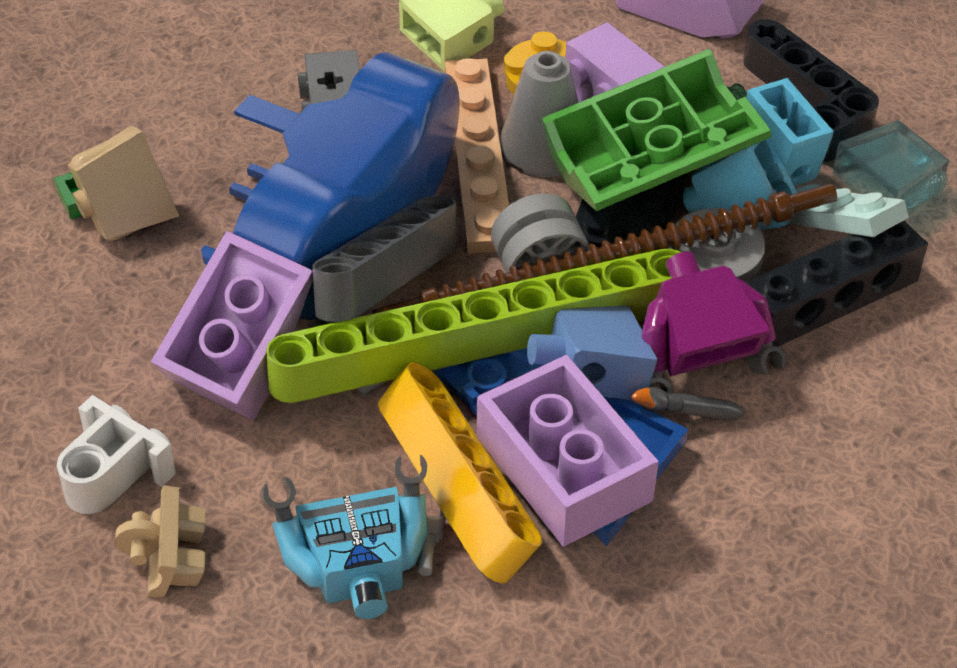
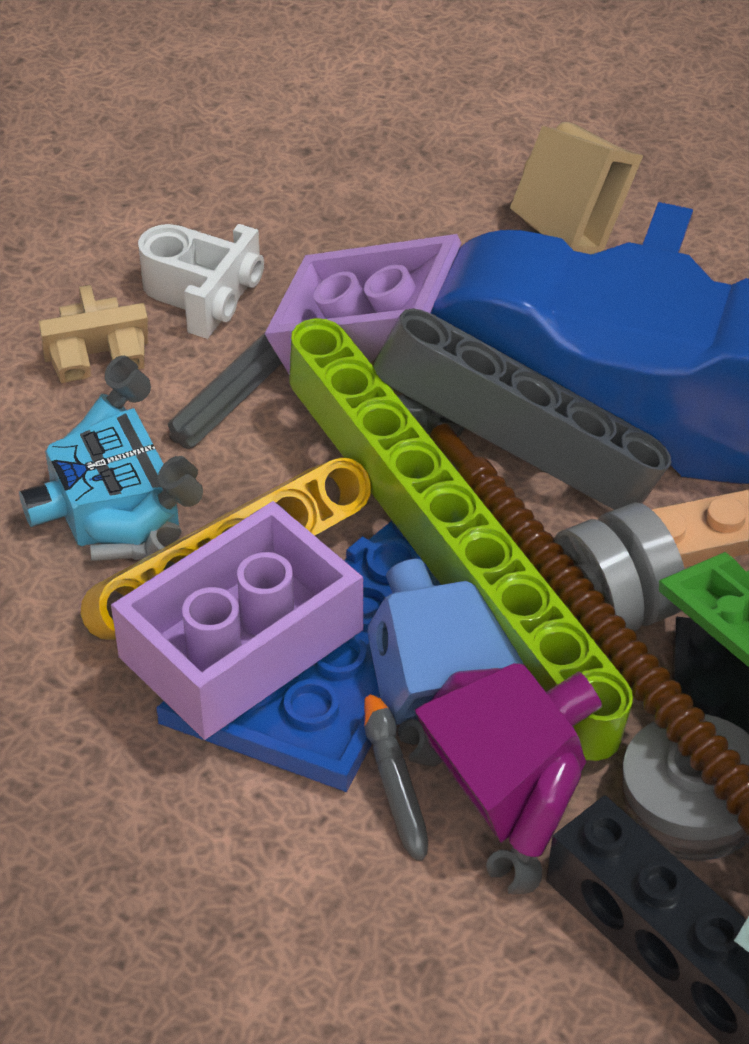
camera: 80 degrees right, 0 degrees up
(250, 454) = (223, 393): none -> dark grey axle

